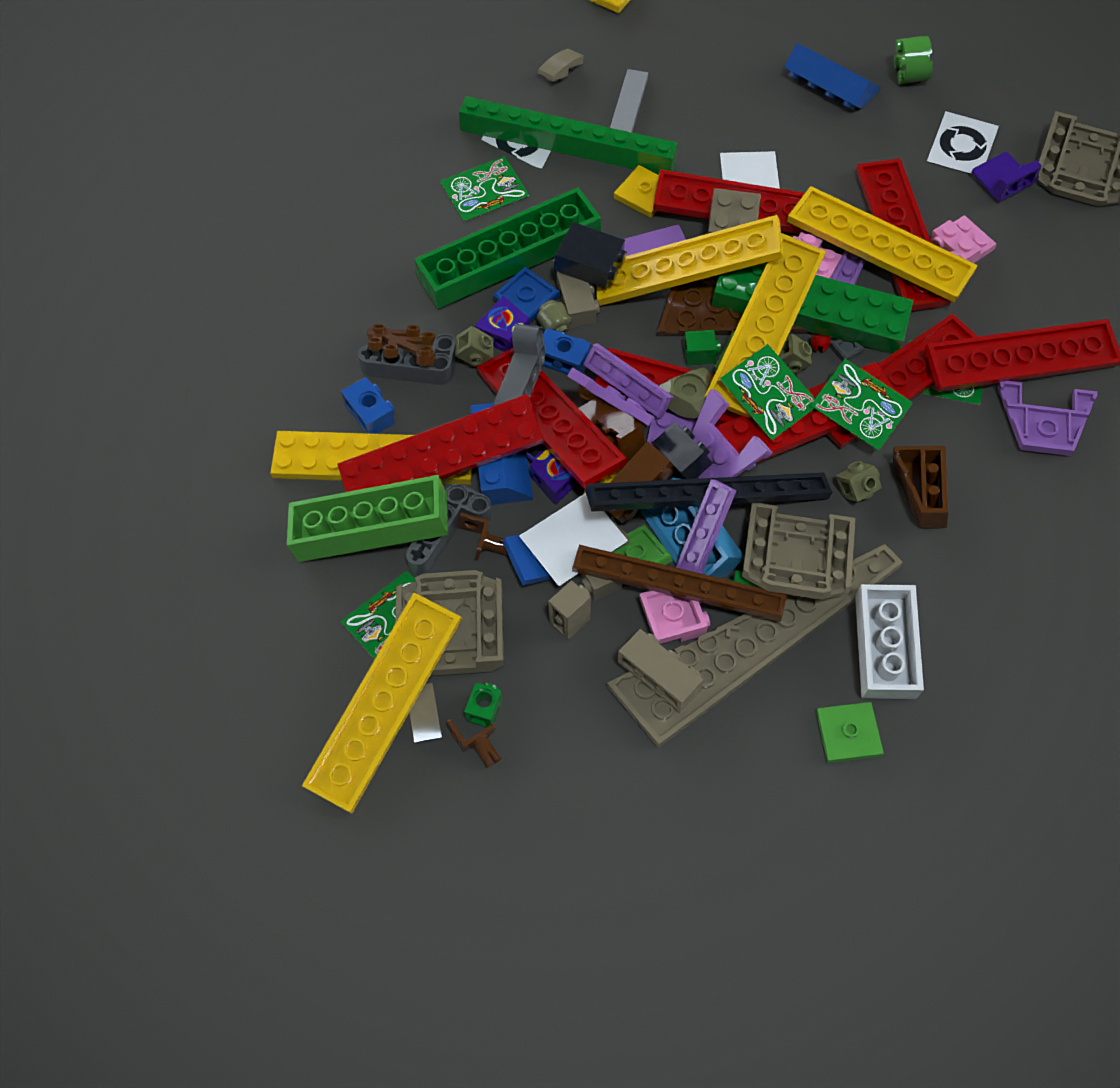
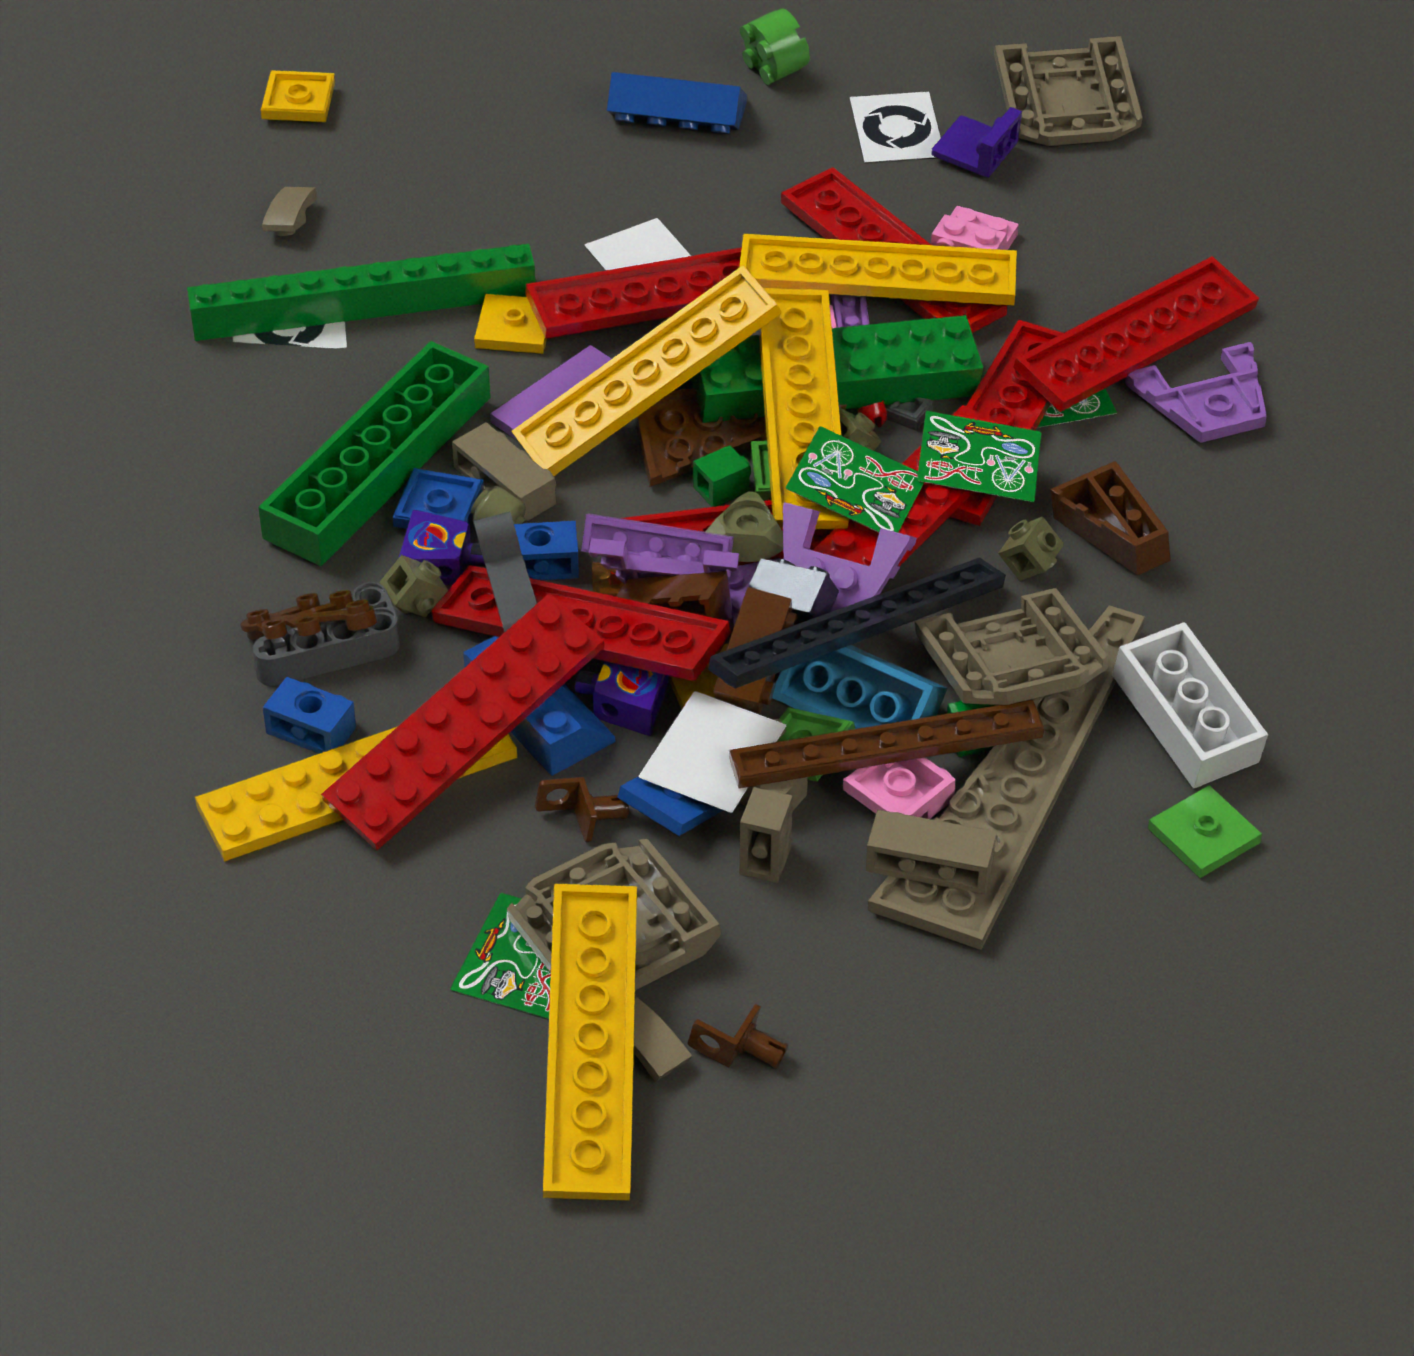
camera: 30 degrees left, 15 degrees down
(367, 518) = (417, 836): bright green brick -> none
(431, 551) = (516, 797): dark grey beam -> none
(483, 715) = (723, 995): green brick -> none
(484, 188) = (281, 399): green sticker -> none
(590, 255) = (507, 414): black brick -> none
(629, 100) = (415, 219): light grey tile -> none
(706, 527) = (883, 659): medium lavender tile -> none
(732, 209) = (659, 293): dark tan brick -> none

